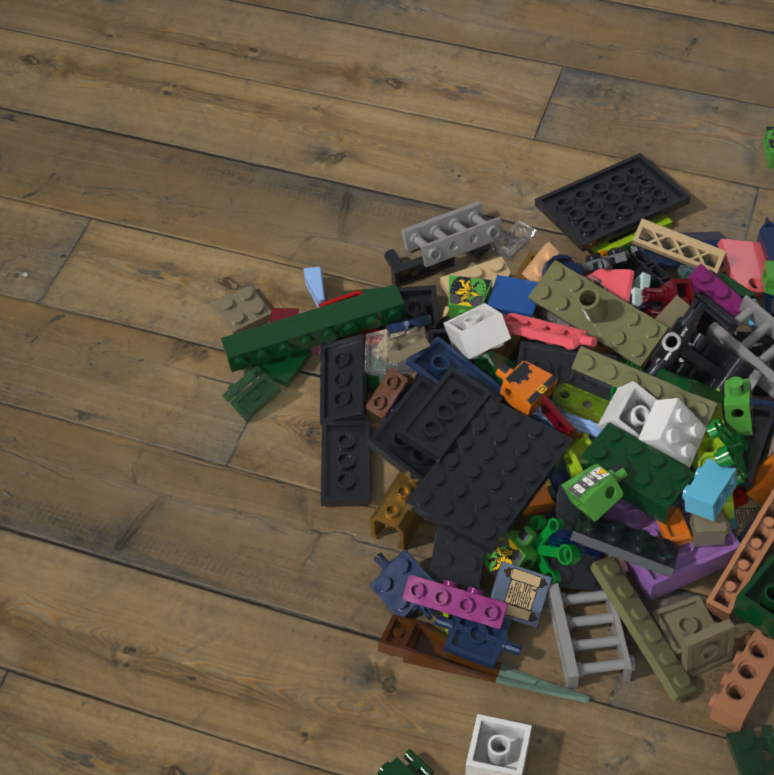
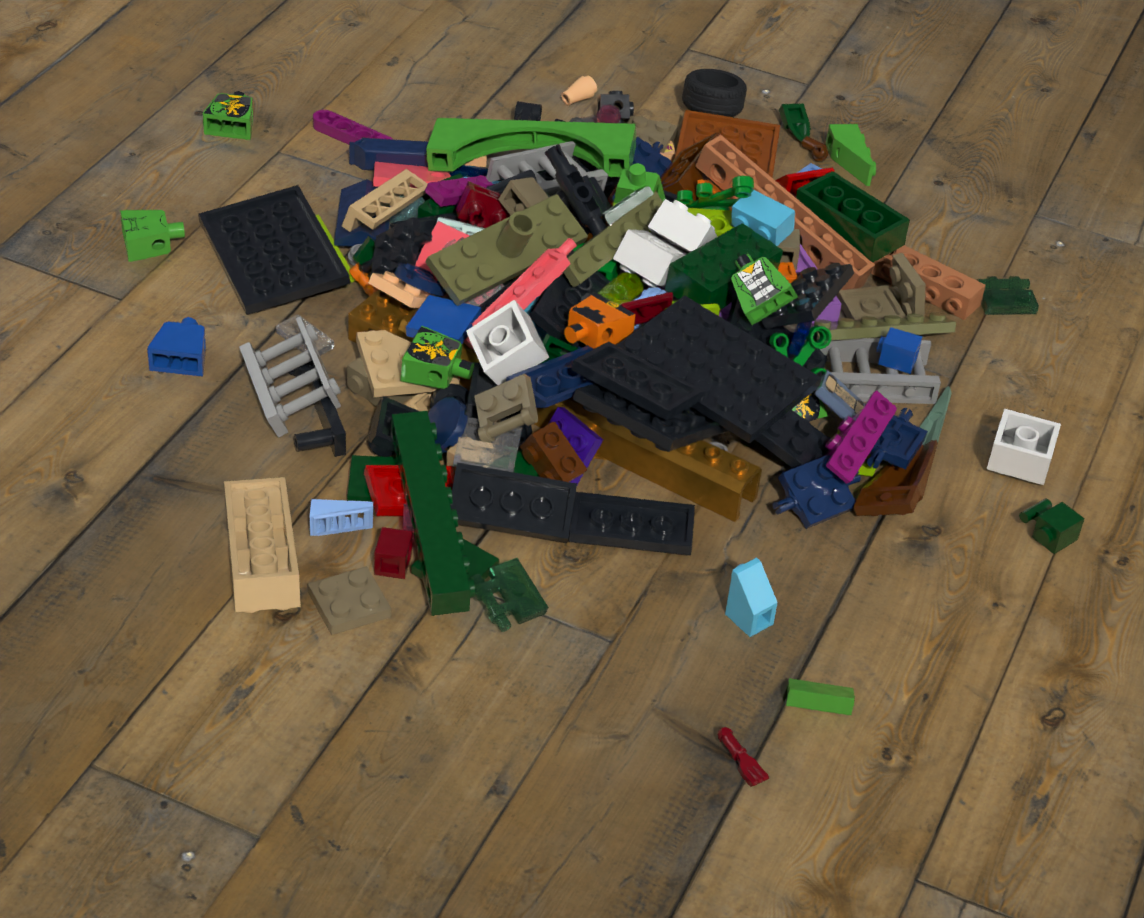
camera: 90 degrees left, 10 degrees down
(107, 555) = (748, 766): none -> dark red piece
(179, 599) = (820, 696): none -> bright green slope
(260, 539) = (751, 598): none -> medium azure slope
(279, 252) = (261, 545): none -> tan slope
(478, 175) = (178, 348): none -> blue torso
(601, 638) = (899, 350): none -> blue brick
(604, 131) = (148, 233): none -> bright green torso

